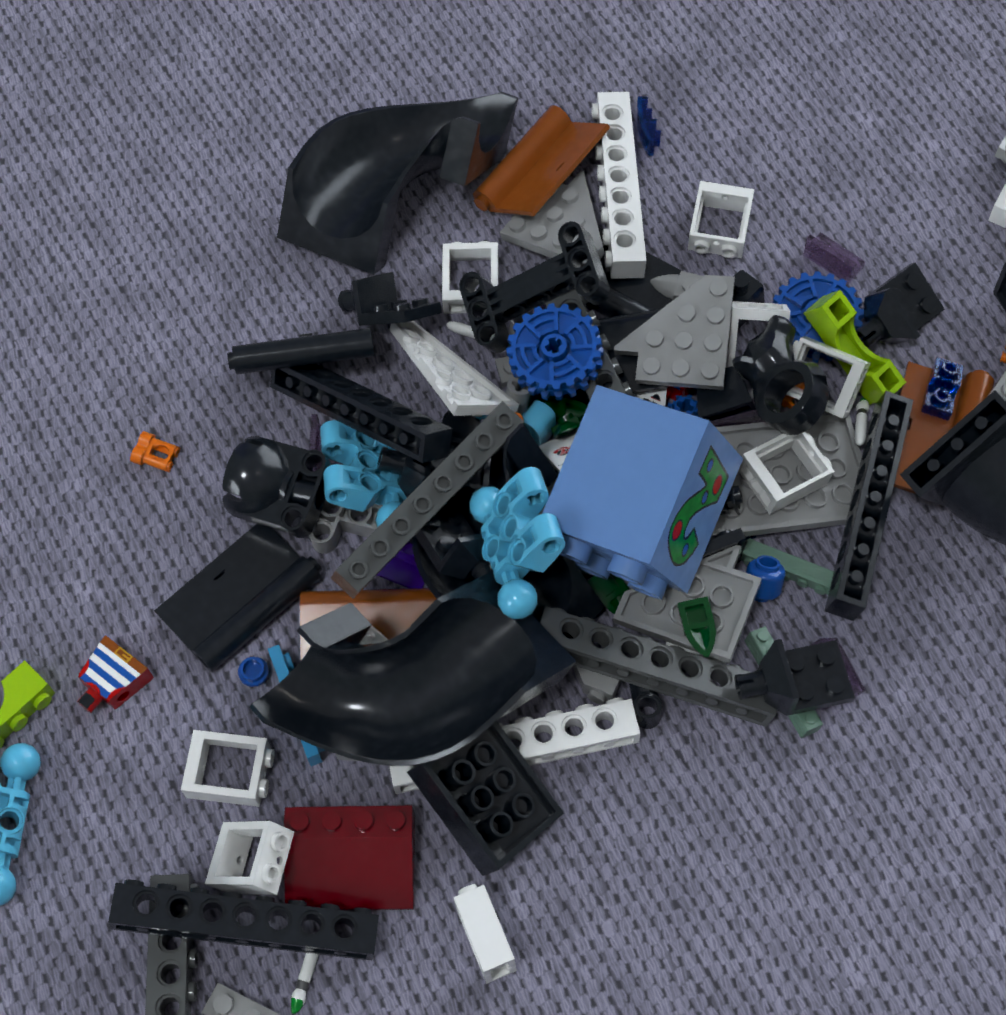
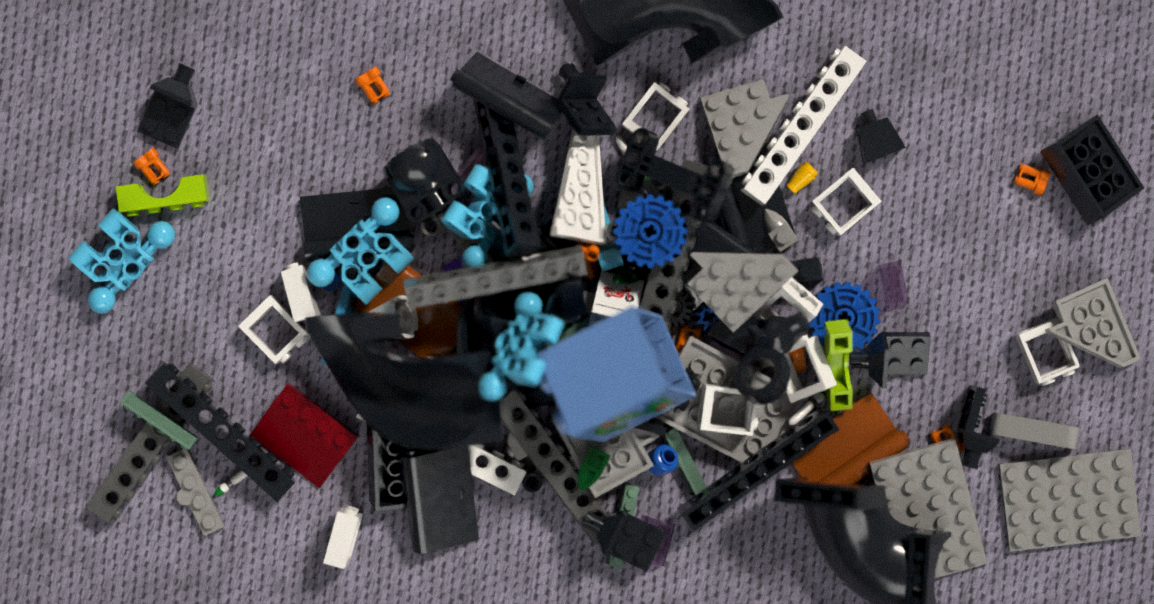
camera: 35 degrees right, 25 degrees up
(111, 676) = (247, 220): torso -> none
(159, 964) = (158, 419): none -> sand green piece
(226, 704) = (299, 292): none -> white slope
(232, 853) = (237, 386): white window -> none
(304, 581) = (322, 272): none -> medium azure connector
(538, 164) = (765, 70): dark orange door -> none
(558, 798) = (434, 498): none -> black door
(647, 126) = (855, 100): clear blue slope -> none
(660, 227) = (803, 176): none -> yellow cone
(699, 148) = (877, 137): none -> black torso
(878, 79) = (1040, 182): none -> orange piece
(915, 43) = (1092, 170): none -> black slope
(942, 388) = (873, 426): clear blue slope -> none

